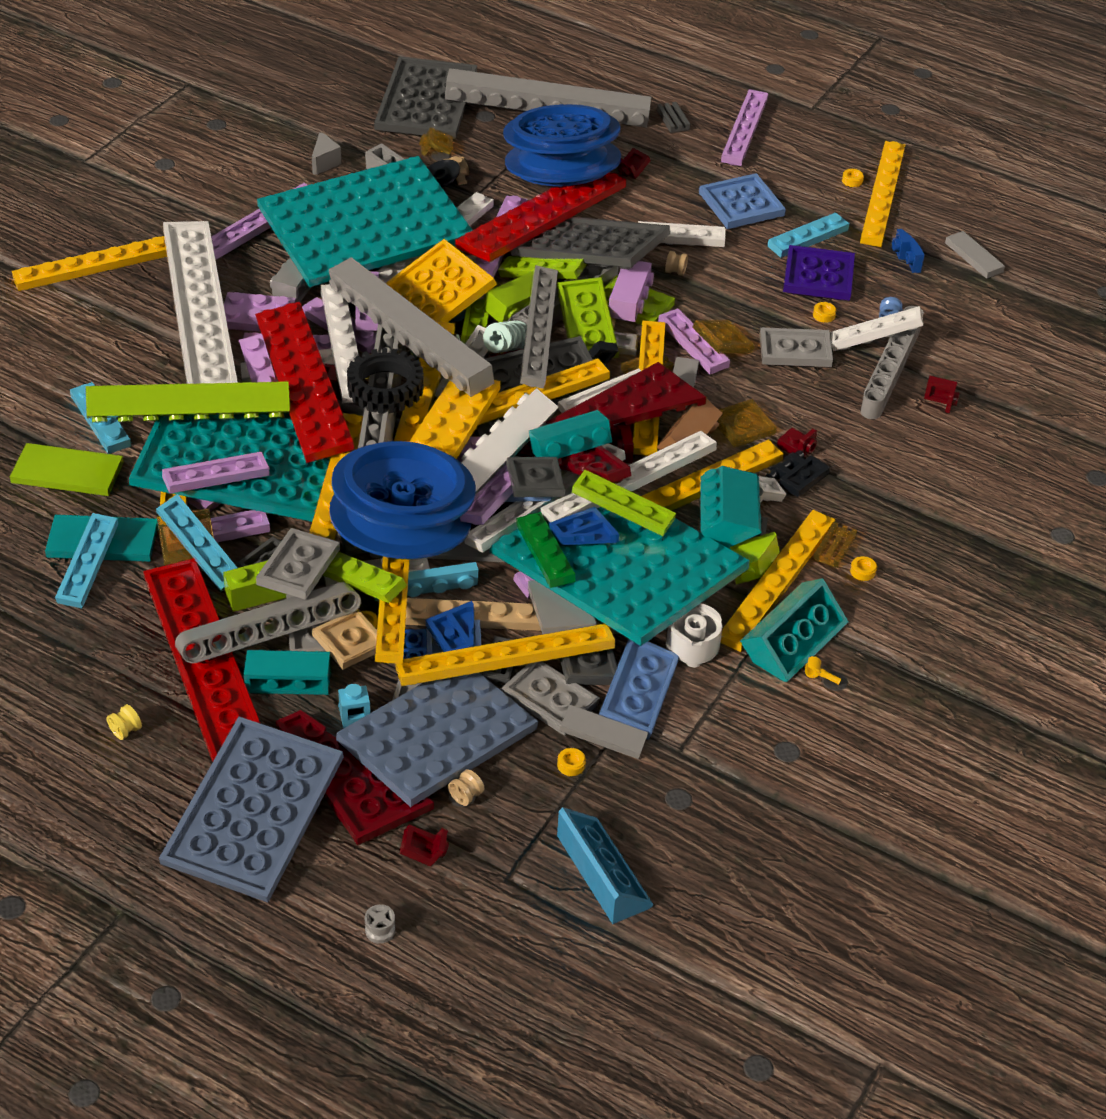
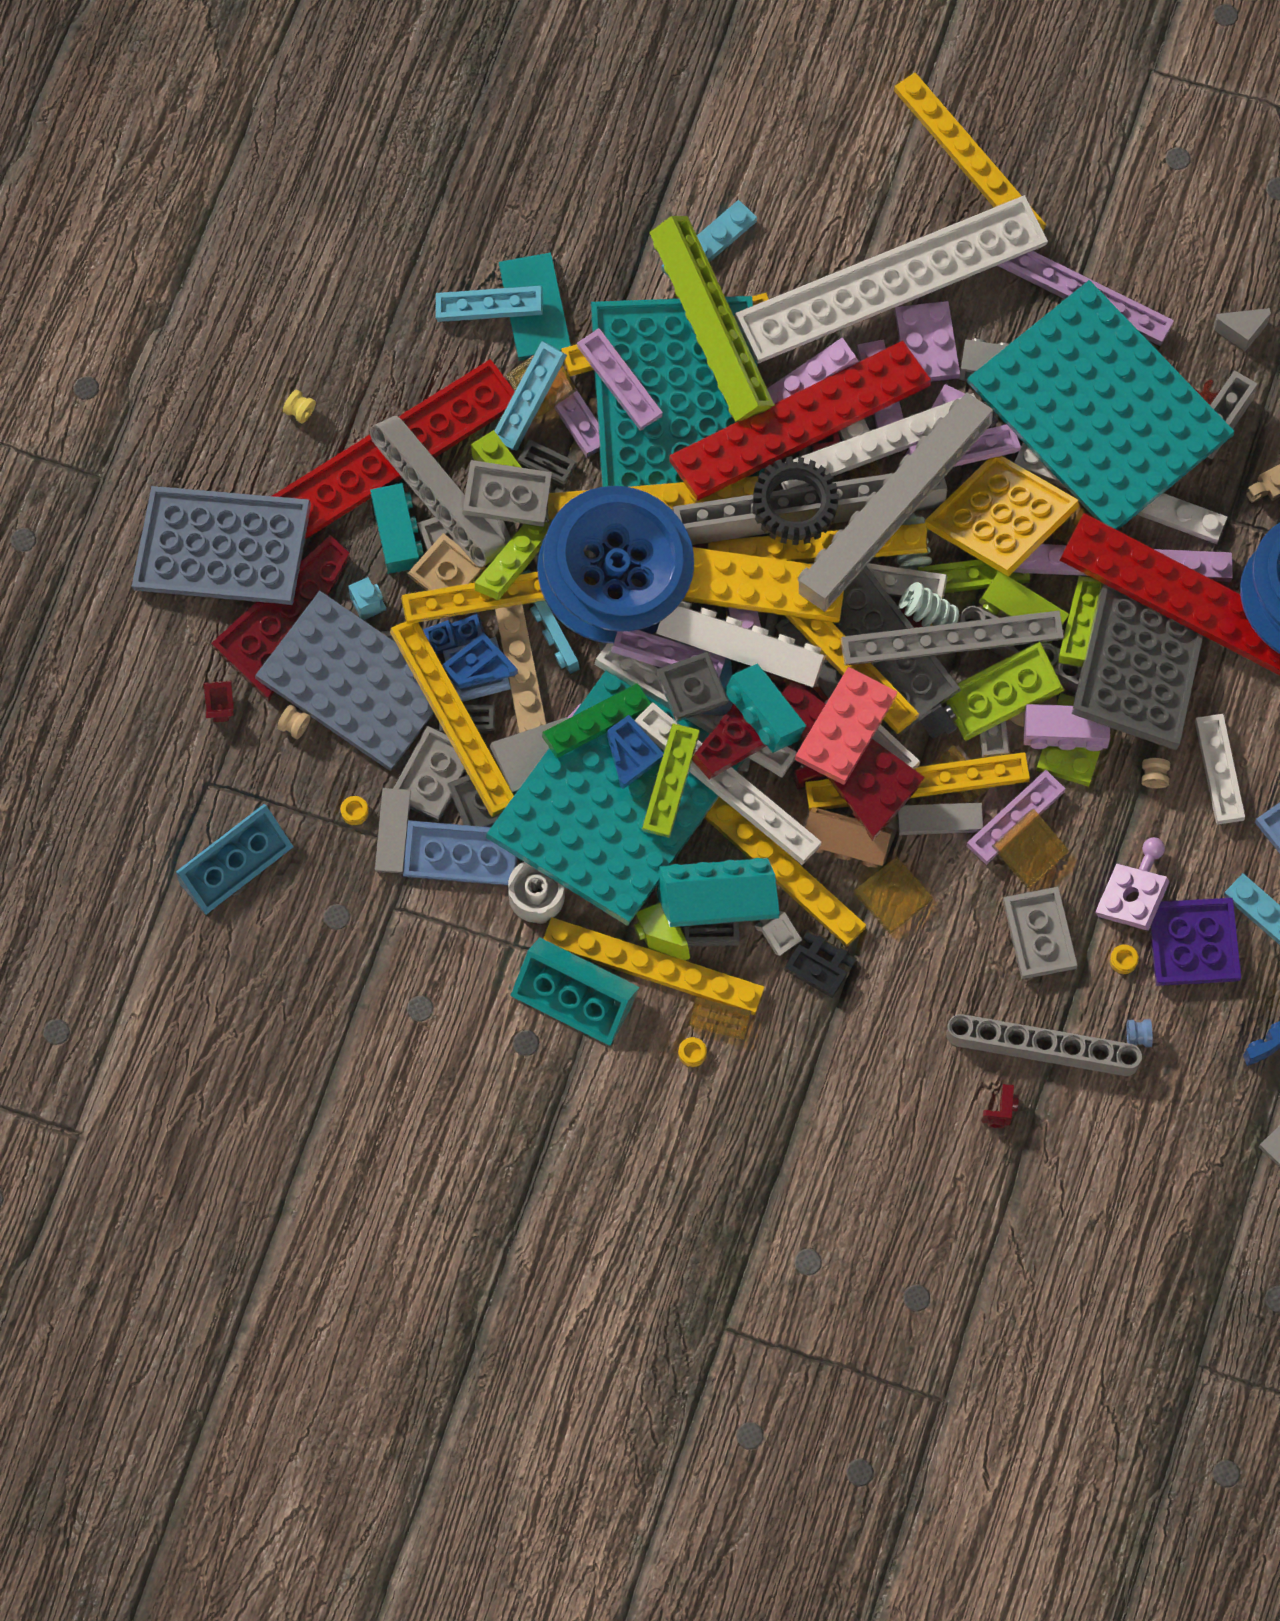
camera: 80 degrees right, 25 degrees up
(67, 469) = (622, 240): lime tile -> none
(377, 916) = (122, 682): light grey wheel -> none
(444, 171) = (1242, 466): black dish -> none
(602, 391) = (846, 725): none -> coral plate
(771, 280) = (1128, 880): none -> lavender plate
(795, 440) = (873, 957): dark red bracket -> none
(813, 670) = (531, 1017): yellow hand -> none
(876, 328) = (1079, 1015): white plate -> none

